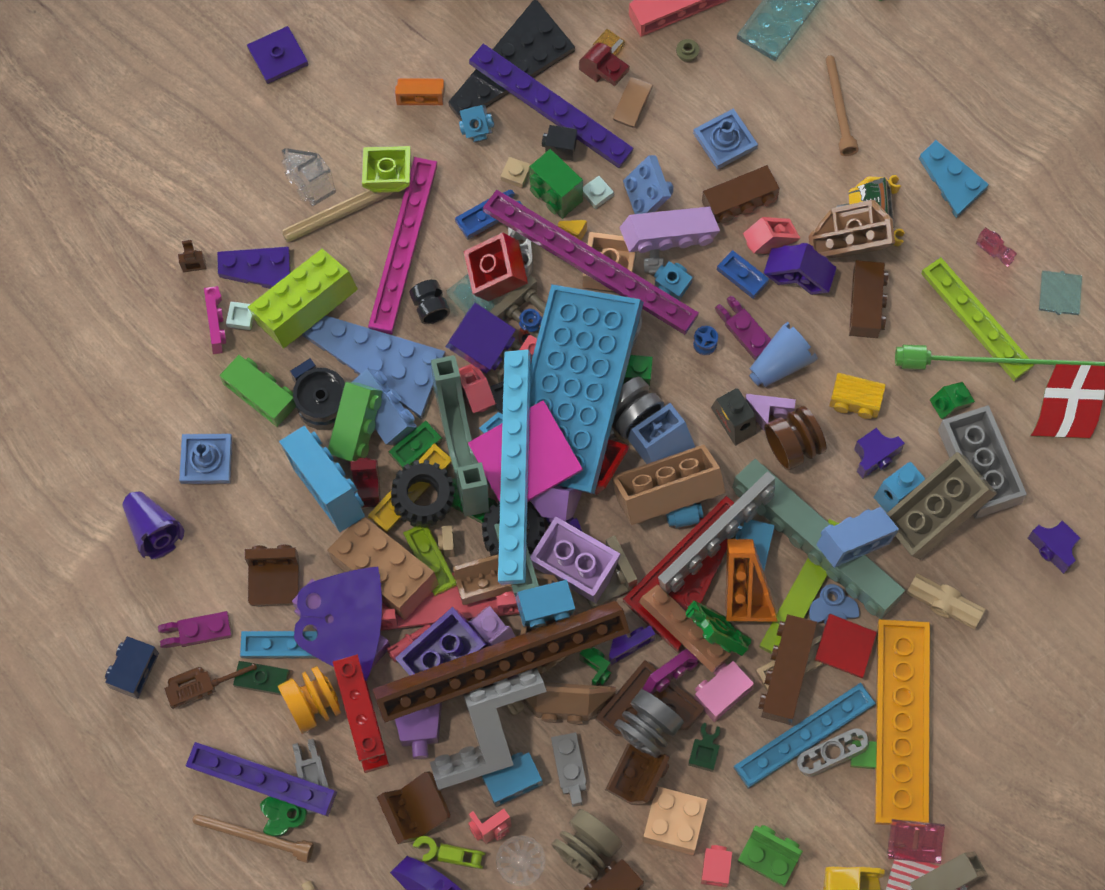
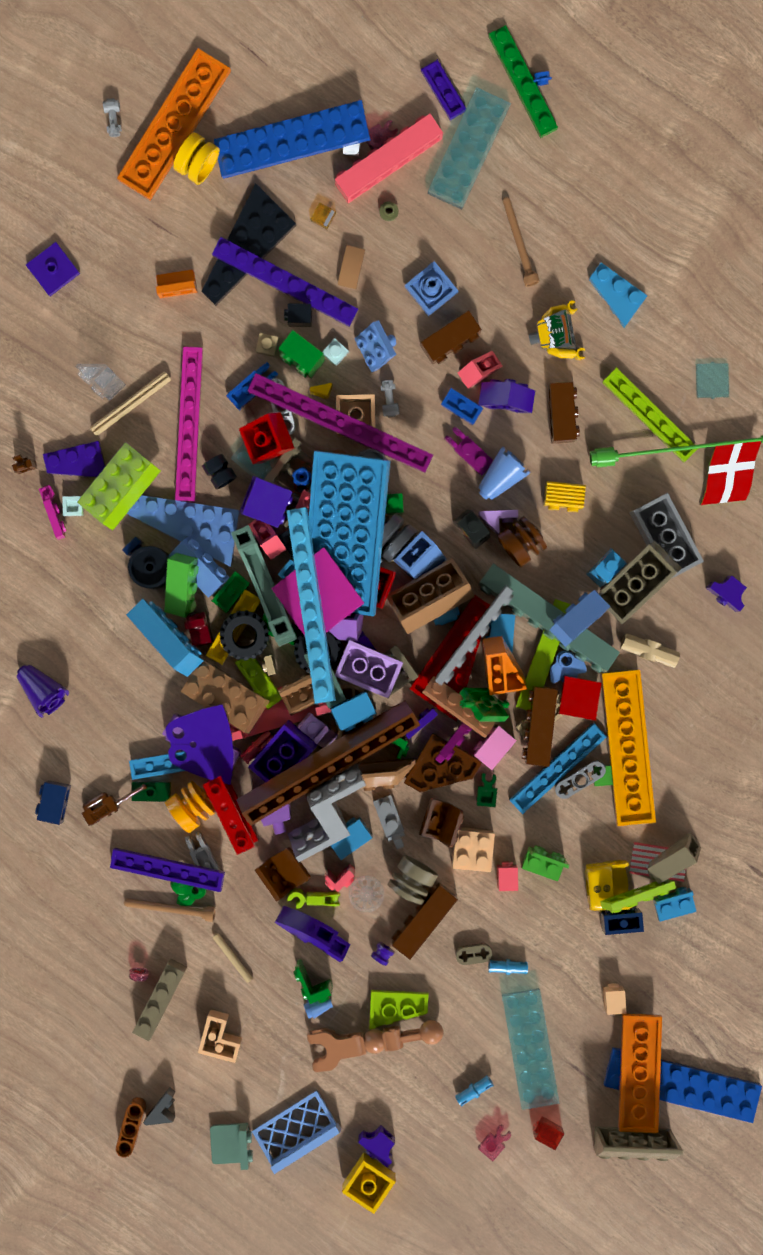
camera: 15 degrees left, 20 degrees up
(197, 630) = (96, 762): magenta hinge -> none
(205, 459) = (72, 628): medium blue plate -> none
(258, 390) = (100, 566): bright green brick -> none
(272, 575) = (143, 714): reddish brown bracket -> none
(386, 168) = (163, 362): lime slope -> none
(470, 116) = (227, 308): dark azure brick -> none
(602, 63) = (320, 237): dark red brick -> none
(649, 723) = (443, 790): flat silver wheel -> none
(669, 229) = (399, 382): lavender brick -> none
(673, 272) = (415, 423): dark azure brick -> none
(705, 334) = (440, 464): blue wheel -> none
(853, 230) = (544, 360): medium nougat wedge -> none
(876, 451) = (584, 540): dark purple brick -> none
(928, 846) = (657, 836): clear pink piece -> none
(951, 399) = (637, 486): green bracket -> none
(993, 245) = (655, 348): clear pink plate -> none

